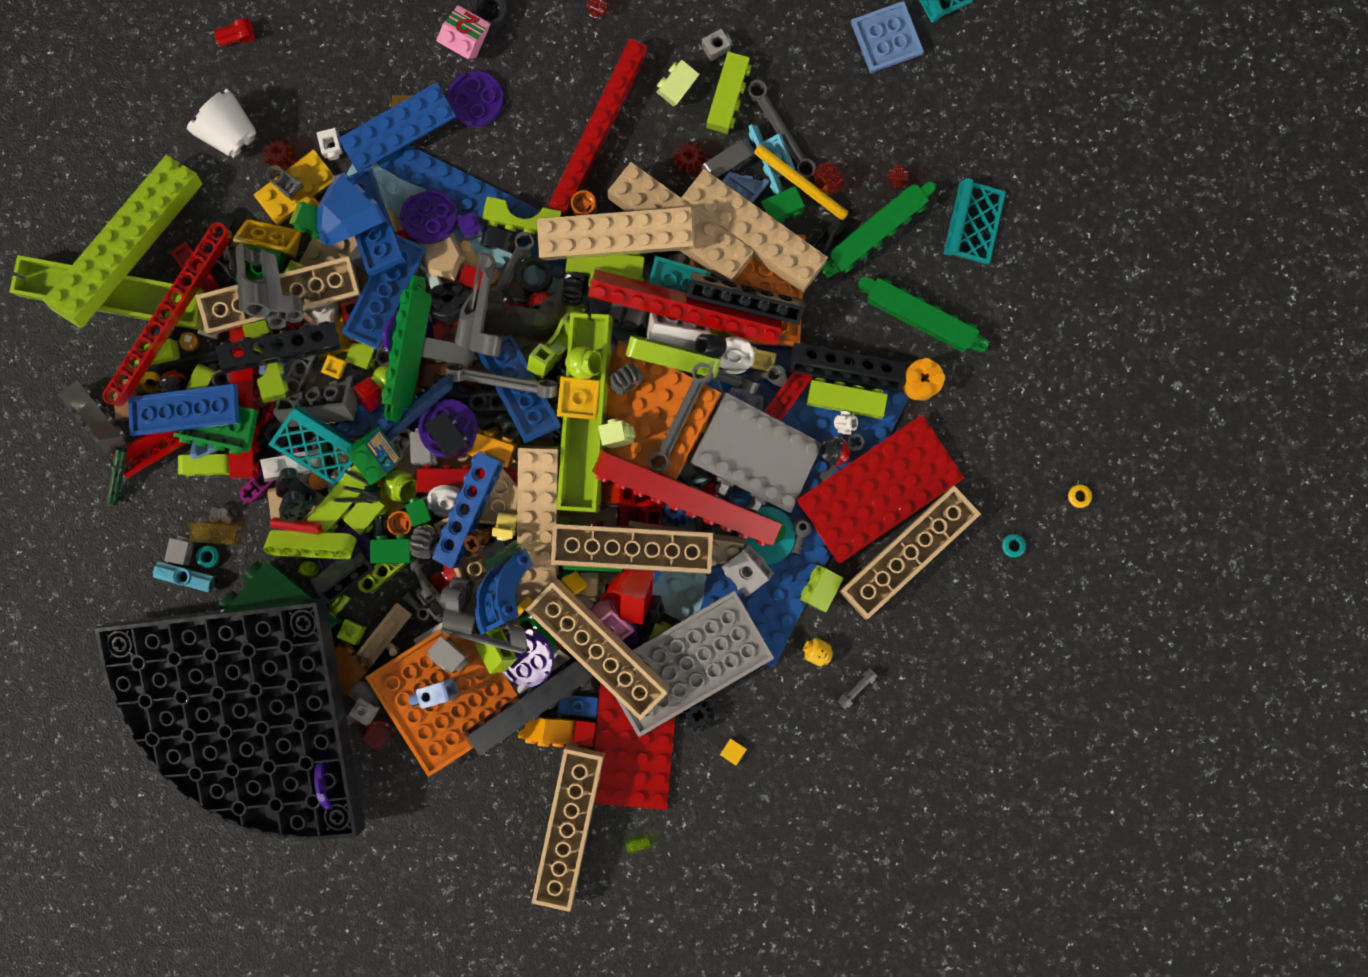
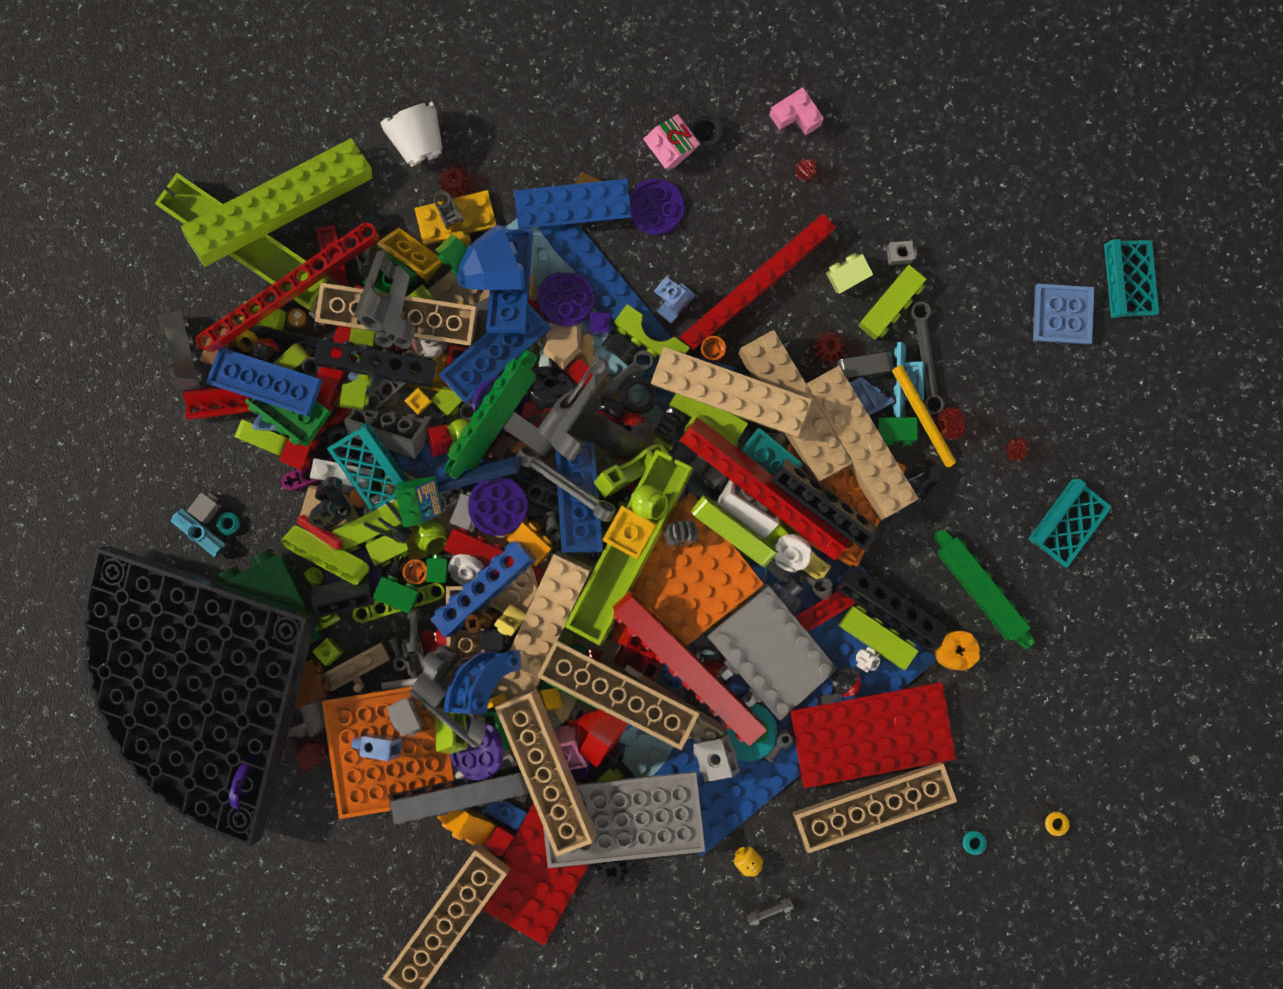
camera: 25 degrees right, 0 degrees up
(120, 455) = (189, 397): dark green pin -> none
(212, 533) = (241, 504): clear yellow slope -> none
(220, 513) = (257, 489): dark grey piece -> none
(240, 32) = (467, 52): red piece -> none
(326, 139) = (504, 185): white brick -> none
(364, 710) = (307, 731): light grey brick -> none
(423, 542) = (429, 600): dark grey gear -> none
(446, 435) = (493, 513): black brick -> none
(501, 555) = (495, 646): clear green pin -> none
(530, 172) = (675, 297): none -> medium blue tile
(616, 433) = (650, 580): yellowish green brick -> none
(637, 844) = (503, 965): clear neon green pin -> none
(681, 417) = (716, 592): dark grey piece -> none
(710, 345) = (773, 535): black piece -> none
(733, 751) = (629, 918): yellow tile -> none
(821, 588) = (777, 804): lime brick -> none
(856, 448) = (869, 675): dark grey bush -> none
(876, 228) = (976, 489): green hinge -> none

